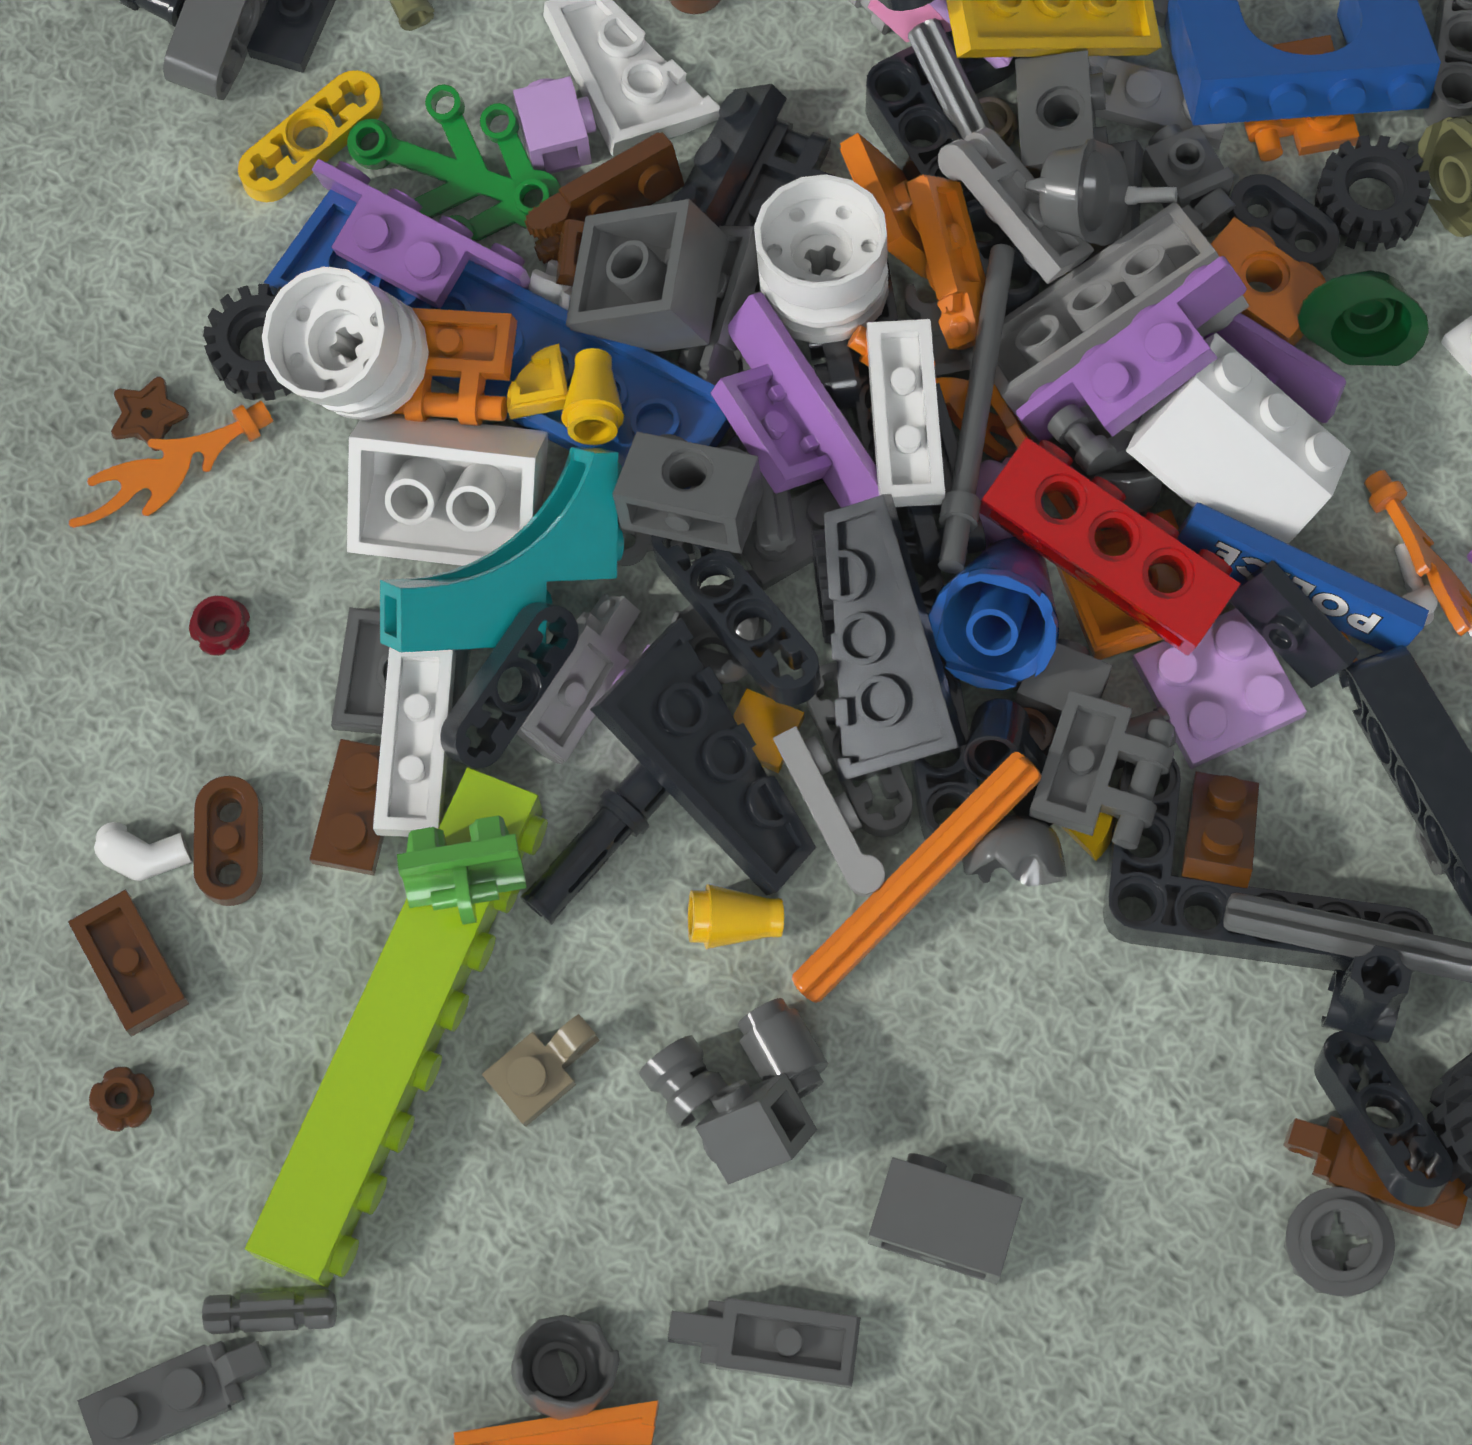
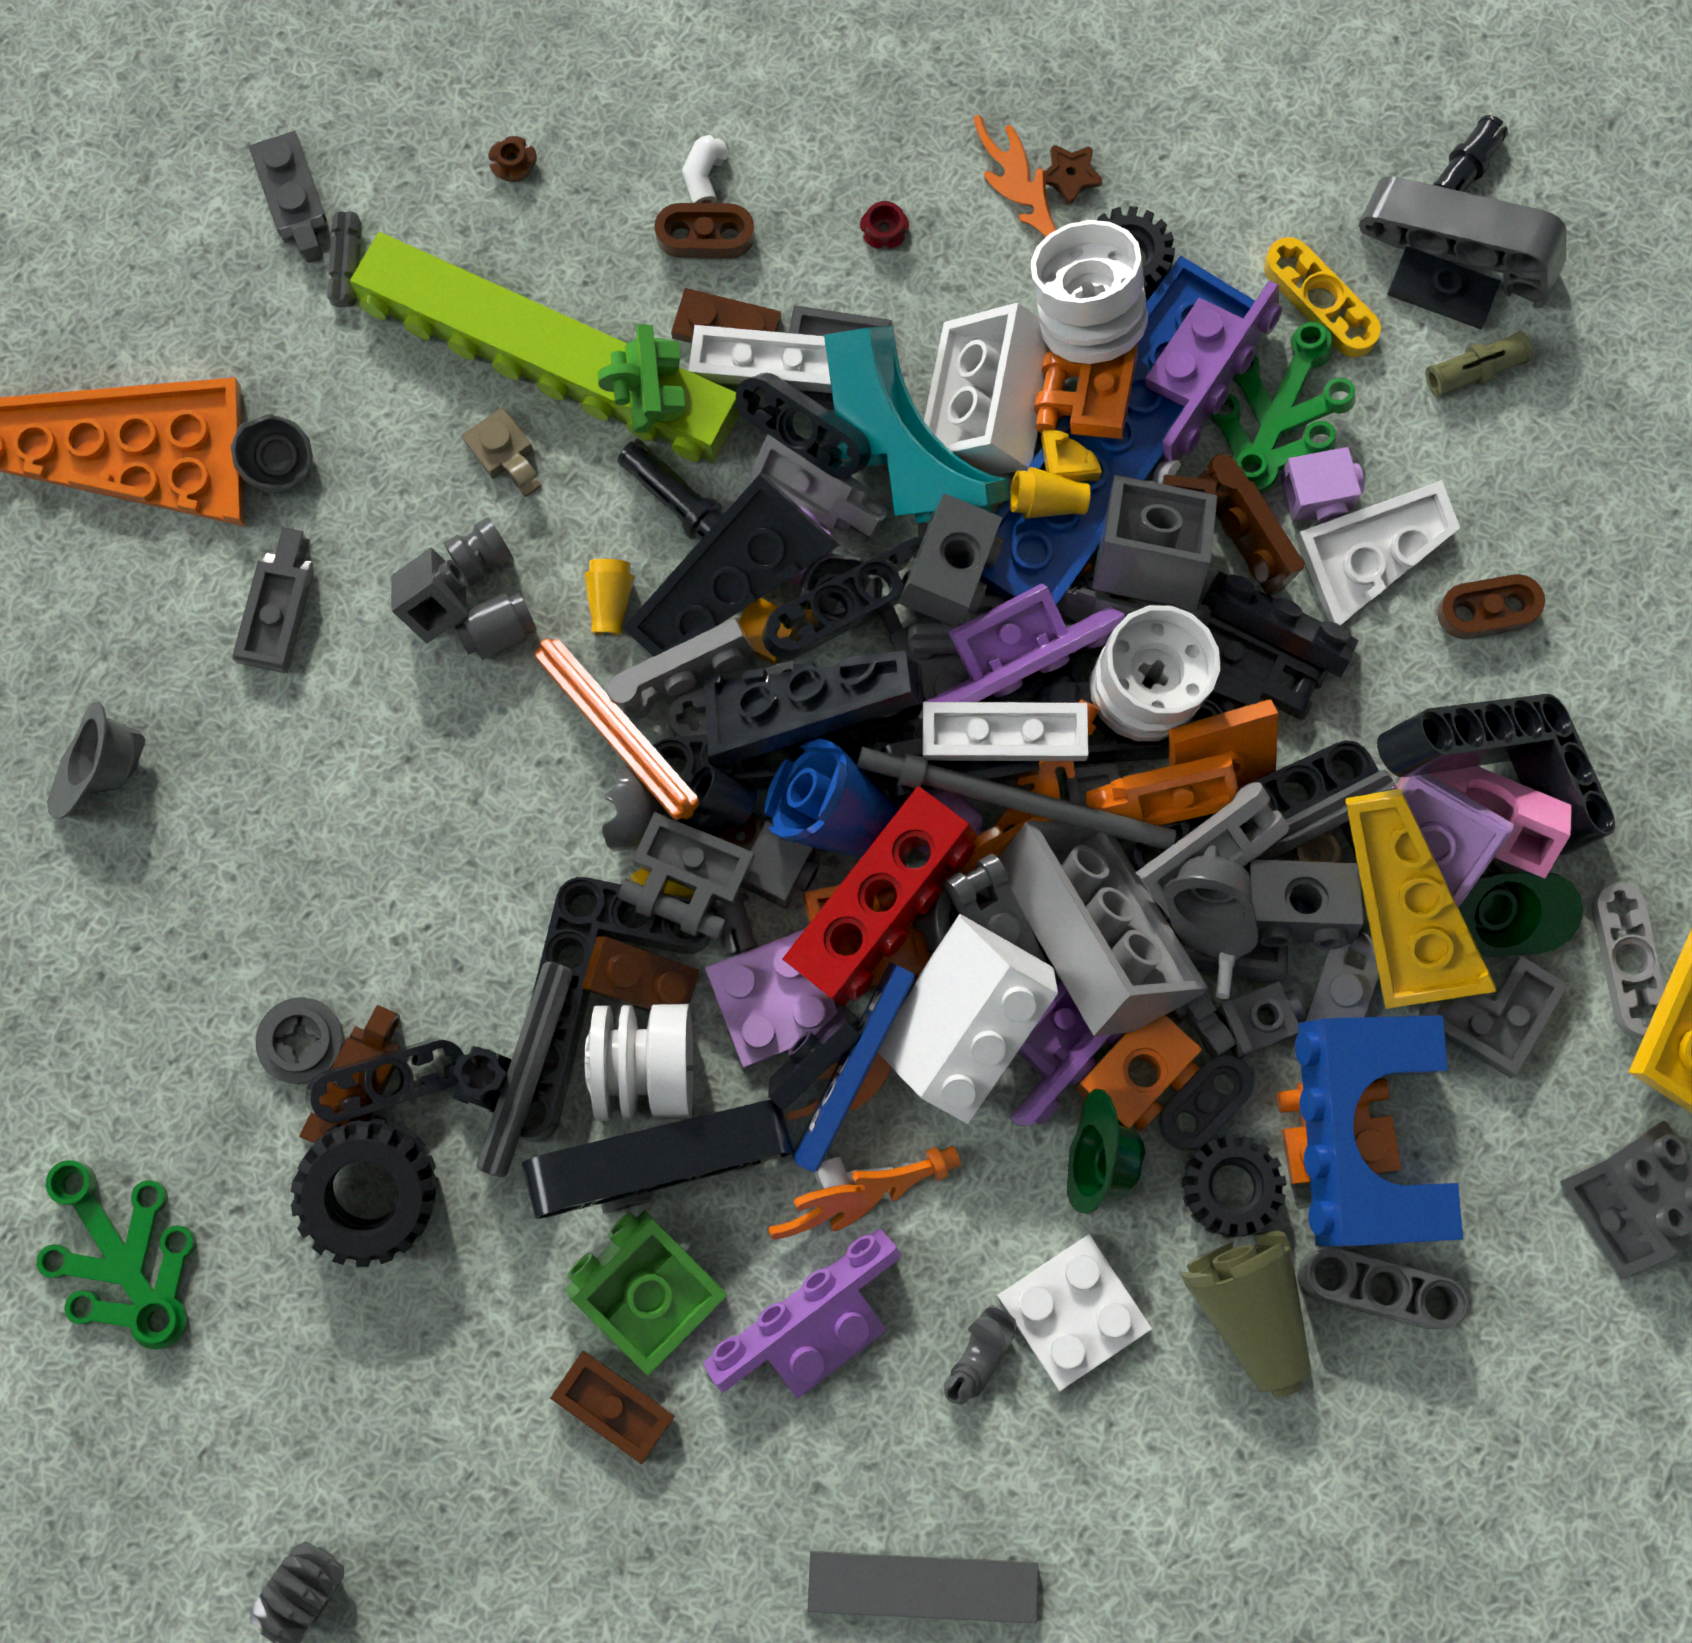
camera: 90 degrees right, 5 degrees up
(128, 963) = (615, 161): reddish brown plate -> none
(945, 1218) = (349, 736): dark grey brick -> none
(1143, 359) = (1035, 932): medium lavender bracket -> none
(1327, 807) = (641, 1062): none -> white wheel

